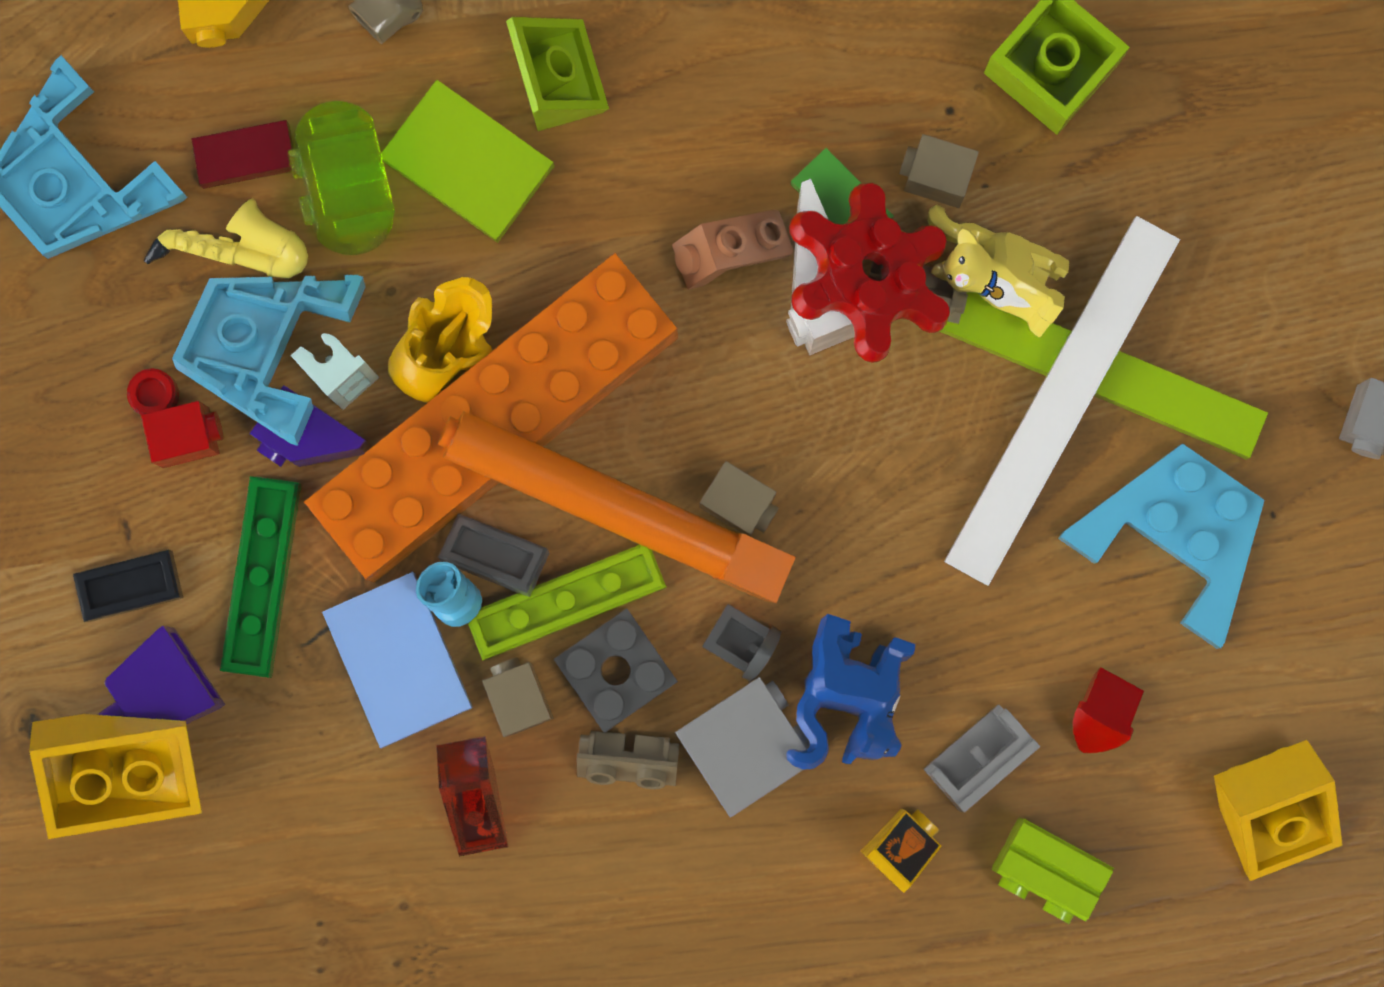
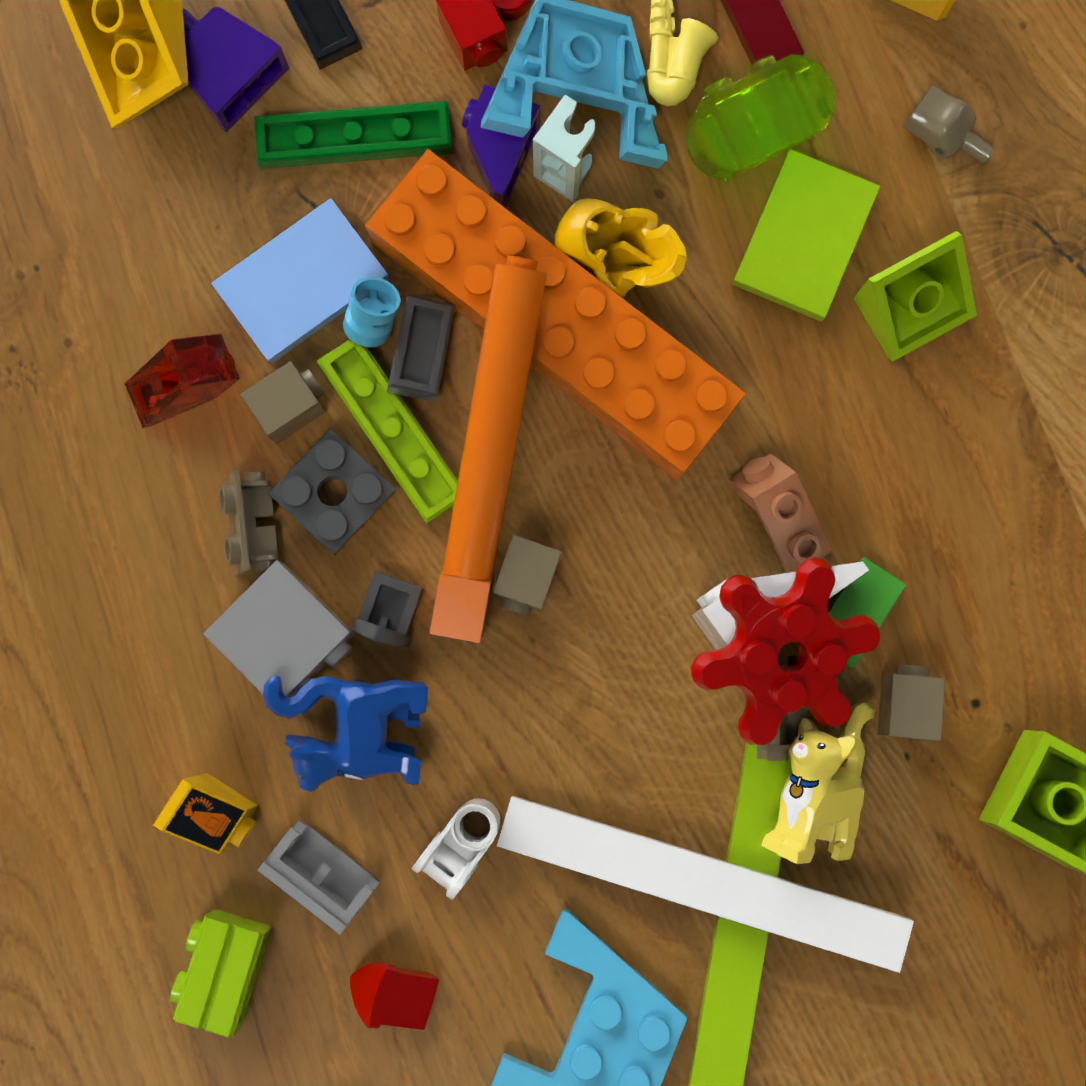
camera: 75 degrees right, 0 degrees up
(983, 622) = (456, 853): none -> white piece

